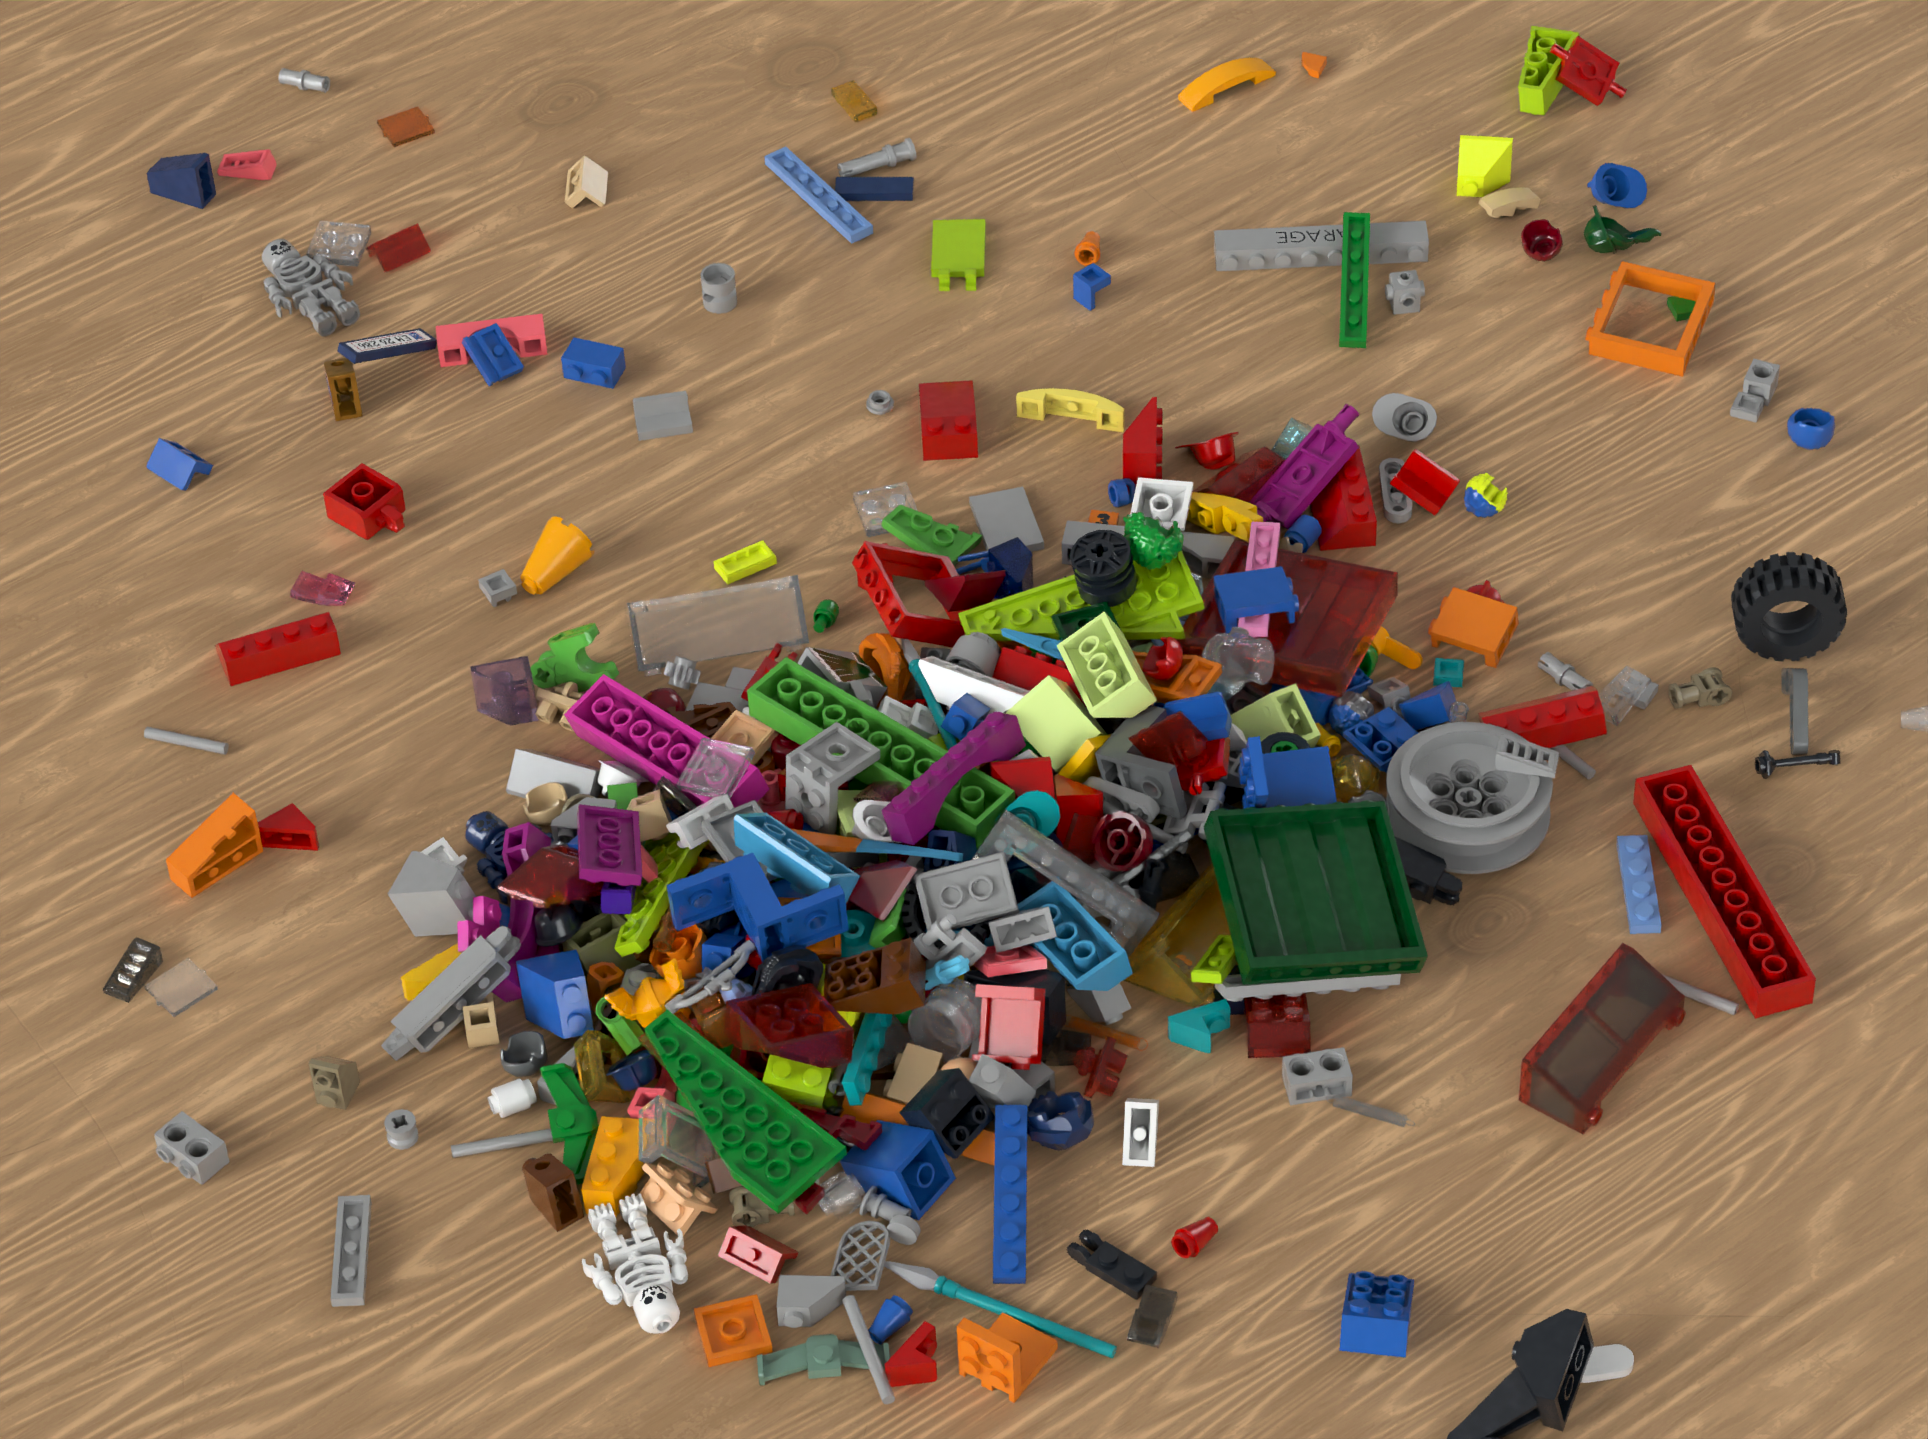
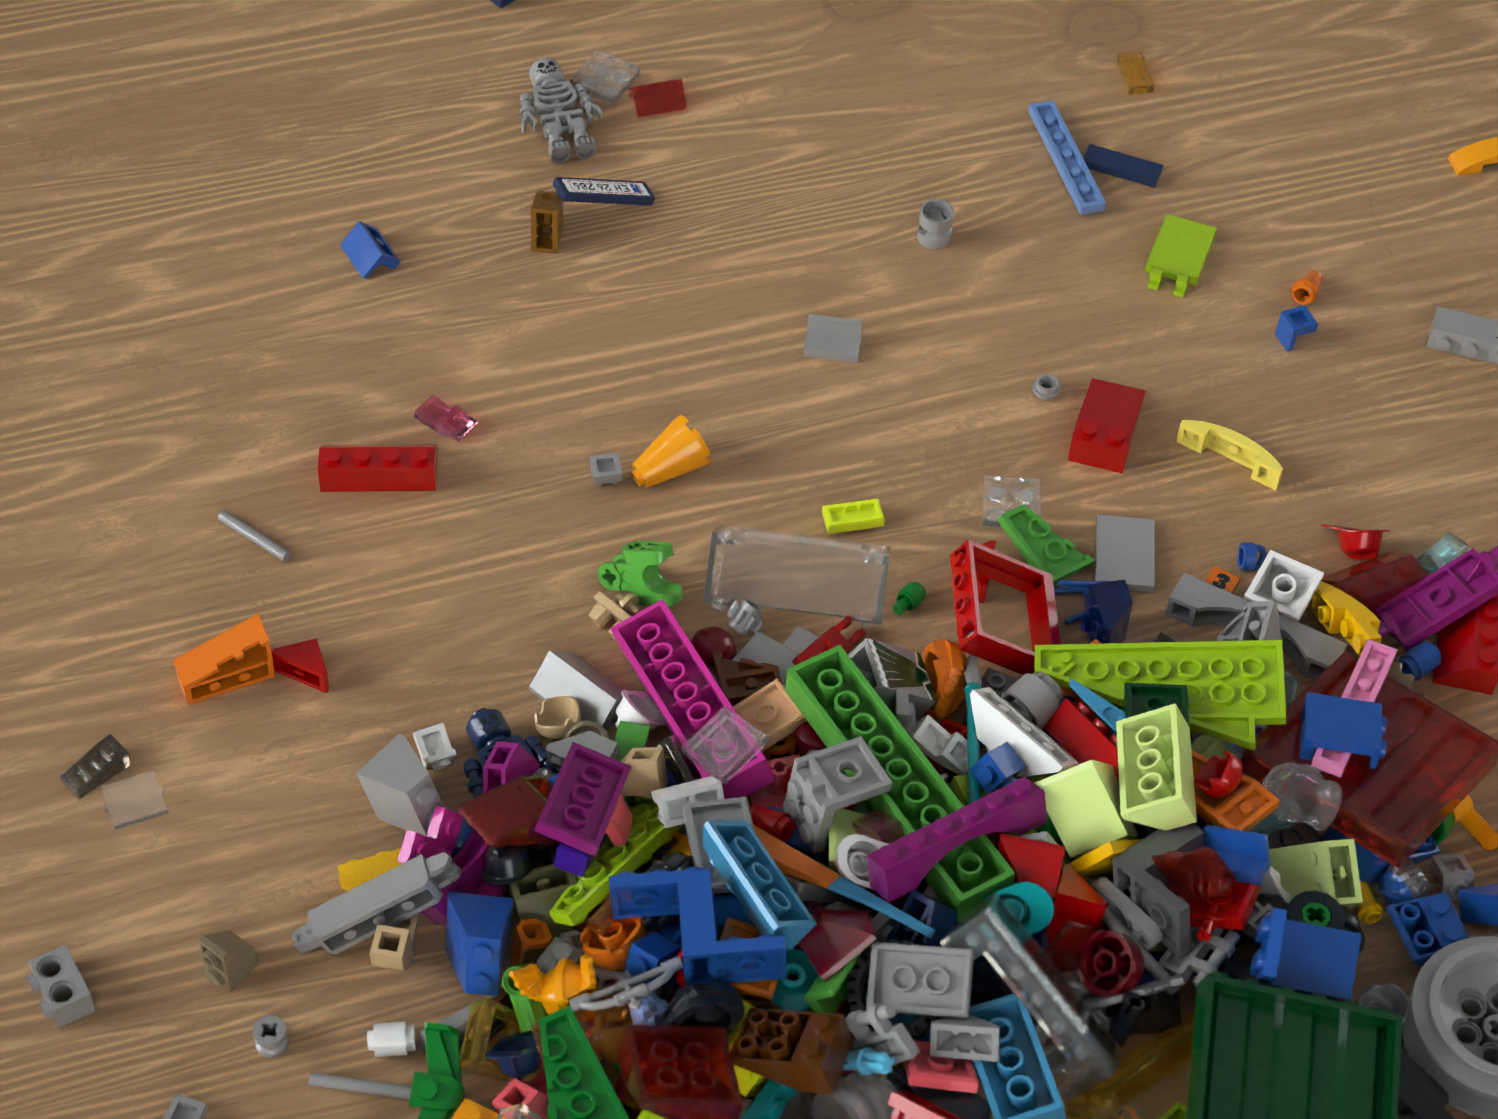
camera: 15 degrees right, 5 degrees up
(366, 502) = (519, 343): red hinge -> none
(492, 354) = (698, 228): blue plate -> none
(505, 690) = (567, 583): slope -> none
(523, 333) = (675, 206): coral arch -> none
(524, 1054) = (423, 994): dark grey hair -> none
(586, 180) = (854, 81): tan panel -> none
(593, 362) = (789, 264): blue brick -> none
(887, 156) = (1148, 137): light grey pin -> none
(966, 591) = (1053, 618): dark red slope -> none
(1103, 568) = (1194, 649): black wheel -> none
(1141, 443) = (1285, 516): red slope -> none
(1150, 542) = (1253, 636): green piece -> none
(1354, 776) = (1382, 960): clear yellow hair -> none

